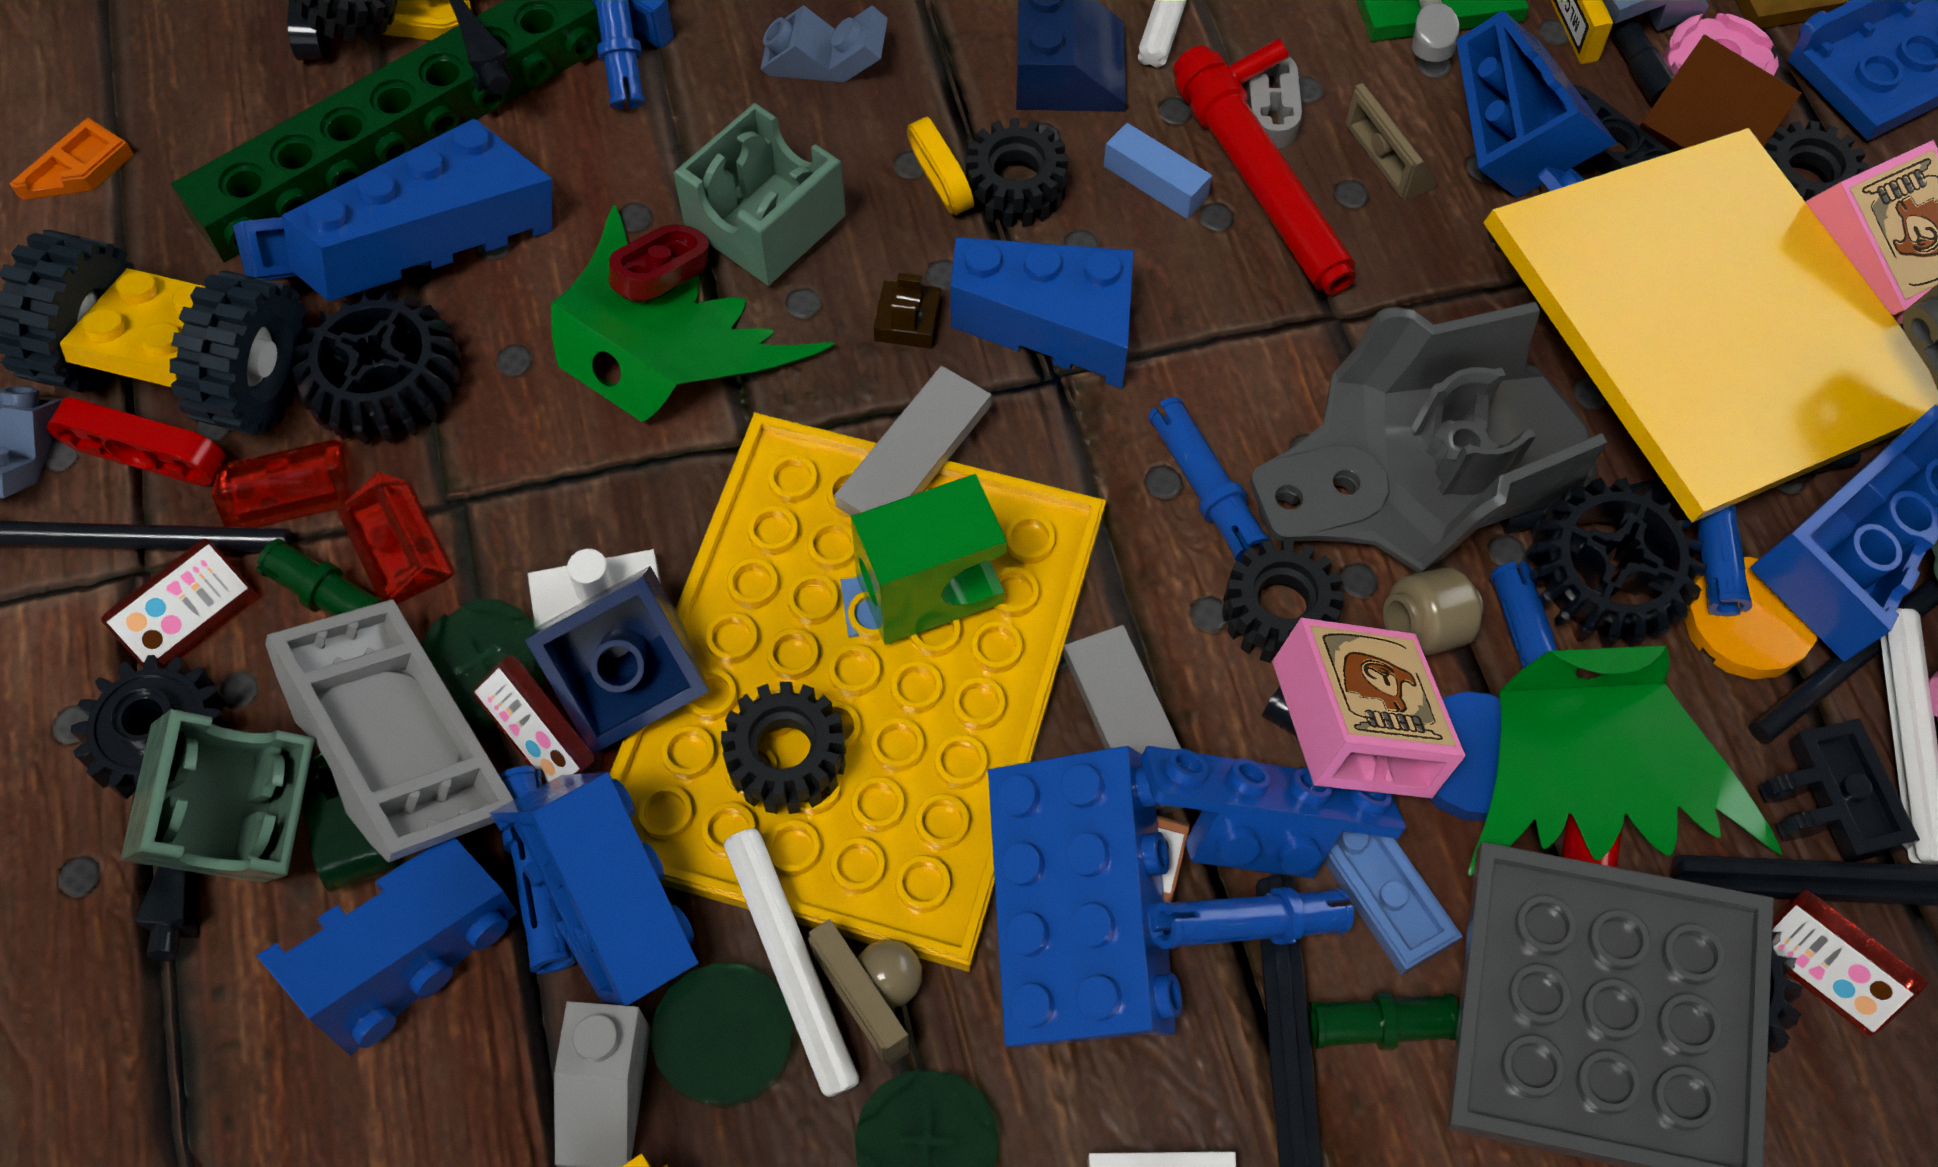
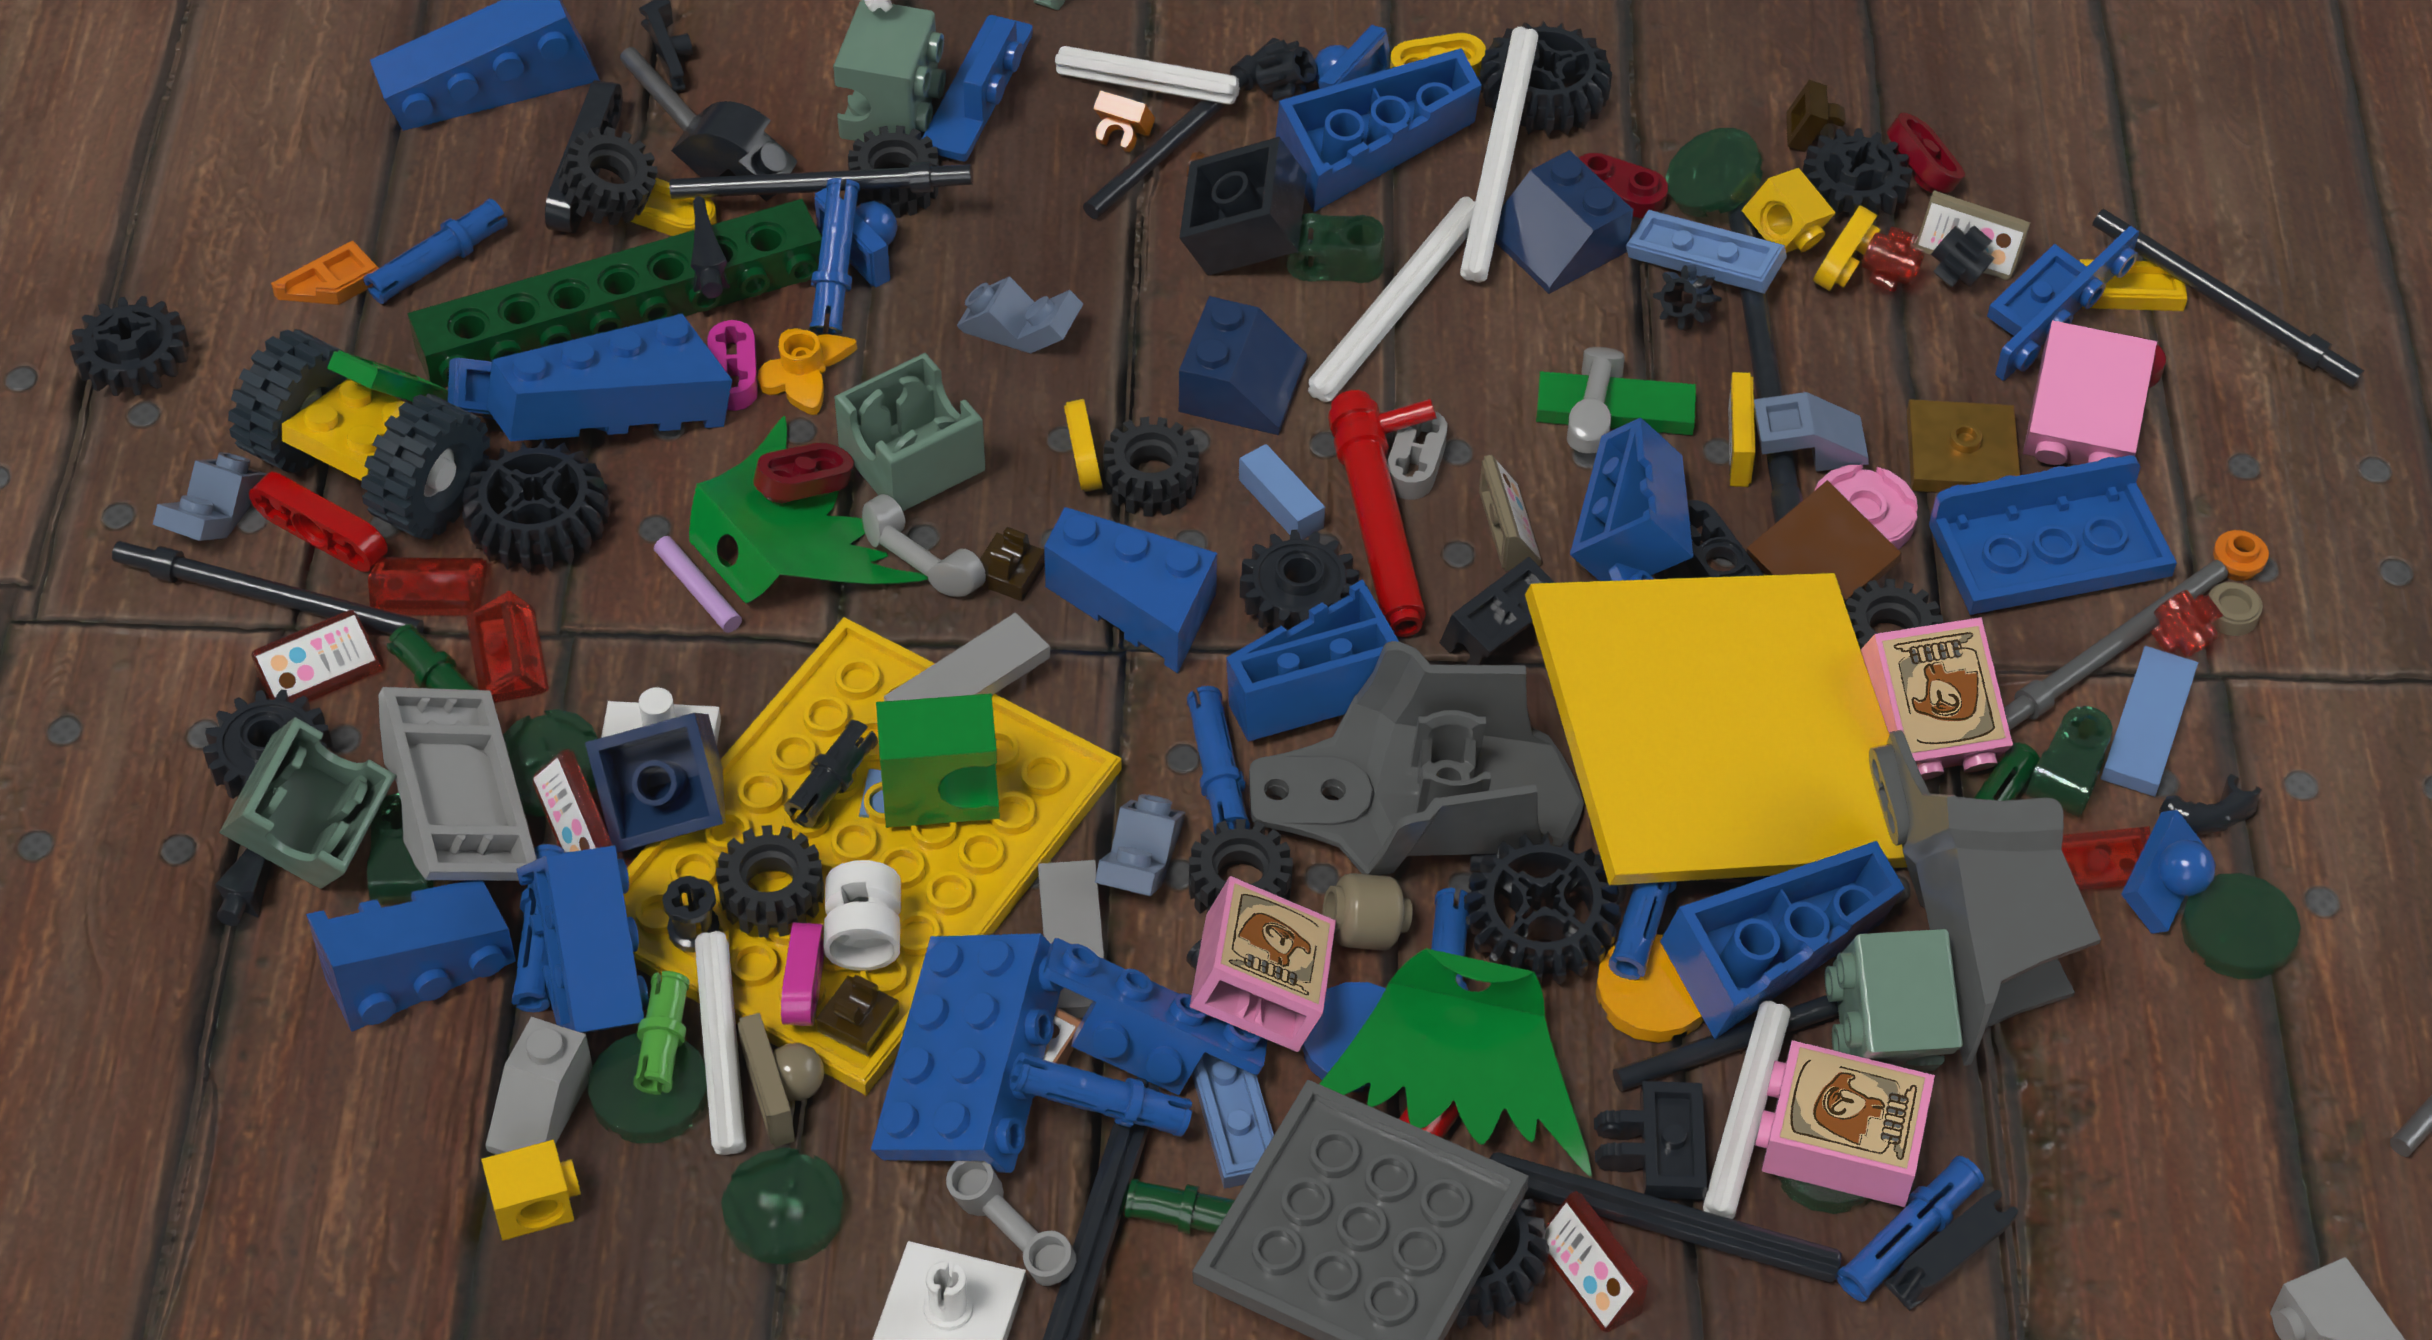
camera: 15 degrees right, 10 degrees down
(163, 262) = (383, 377): none -> green tile
(198, 93) = (453, 240): none -> blue pin
(550, 159) = (740, 364): none -> dark pink beam
(582, 412) = (697, 584): none -> lavender piece
(615, 147) = (802, 365): none -> light orange animal
(717, 796) = (682, 918): none -> black bush
(722, 972) = (661, 1033): none -> bright green pin
(807, 600) = (831, 773): none -> black pin
(856, 339) = (953, 576): none -> light grey bar
(861, 854) = (802, 974): none -> dark pink beam
(907, 772) = (862, 915): none -> white wheel
(936, 885) = (858, 1014): none -> dark brown tile
(1166, 597) = (1141, 845): none -> sand blue slope
(1216, 265) = (1294, 577): none -> black gear
(1259, 1132) = (980, 1193): none -> light grey bar
(1276, 349) = (1309, 669): none -> blue wedge
(1436, 247) = (1494, 614): none -> black hinge

